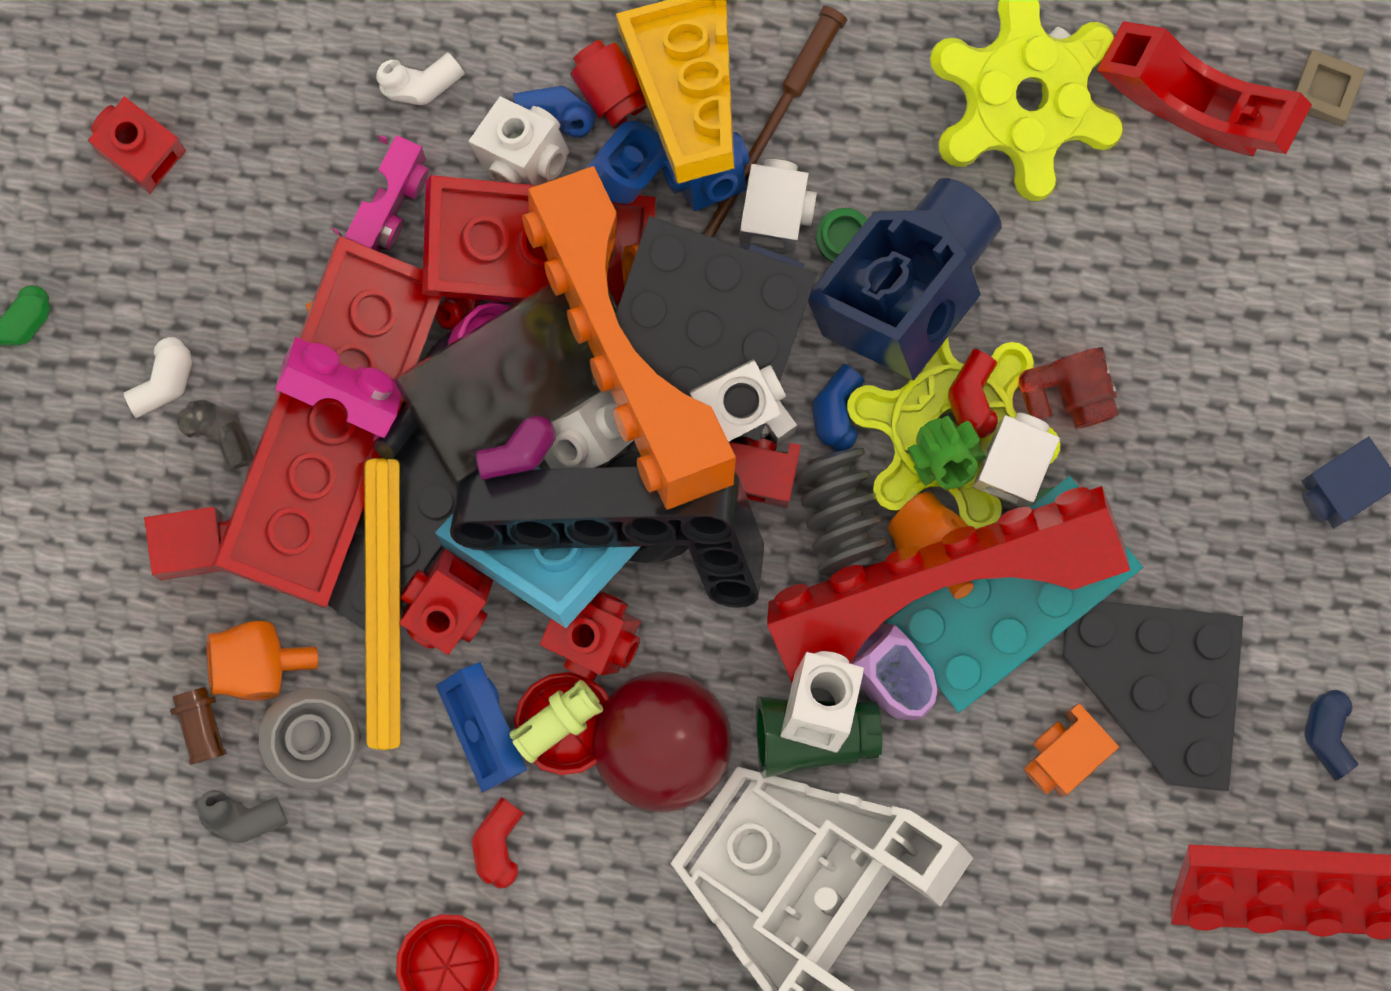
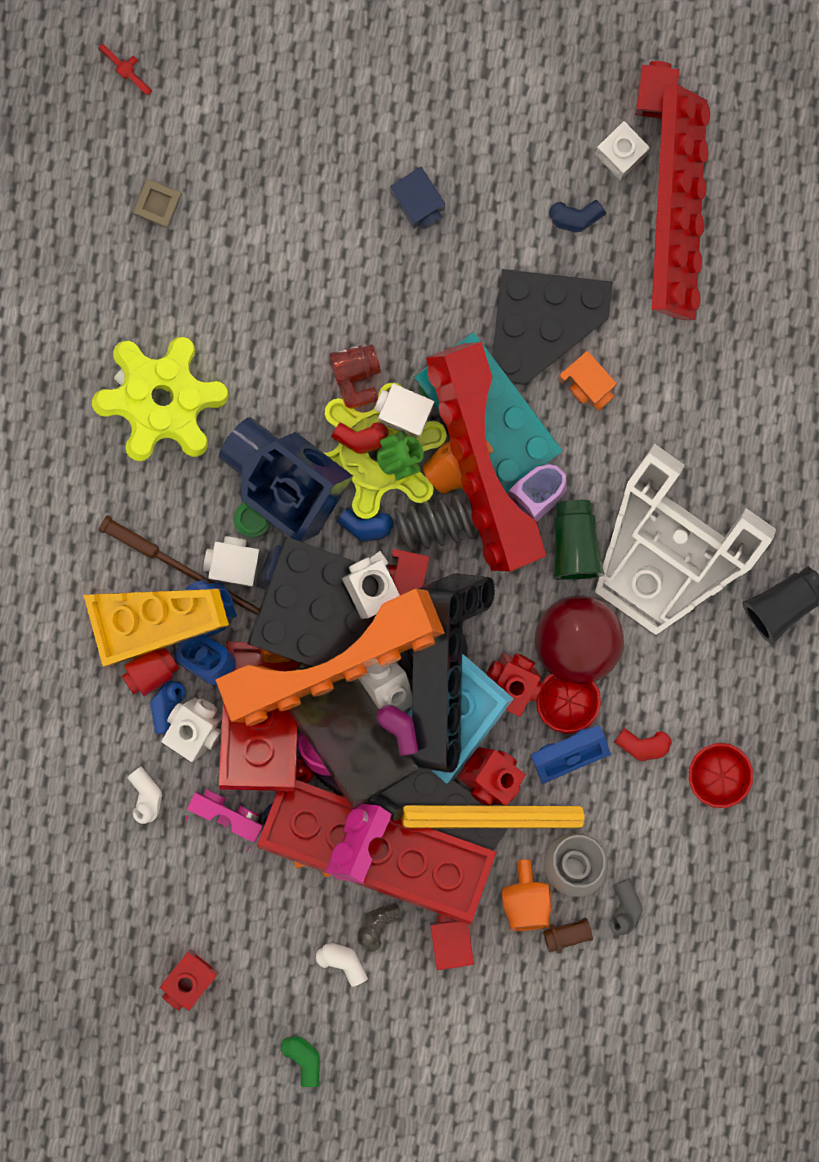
camera: 90 degrees left, 5 degrees up
(563, 716) = (565, 700): yellowish green pin -> none
(811, 721) = (570, 548): white brick -> none
(1178, 87) = (164, 286): red arch -> none

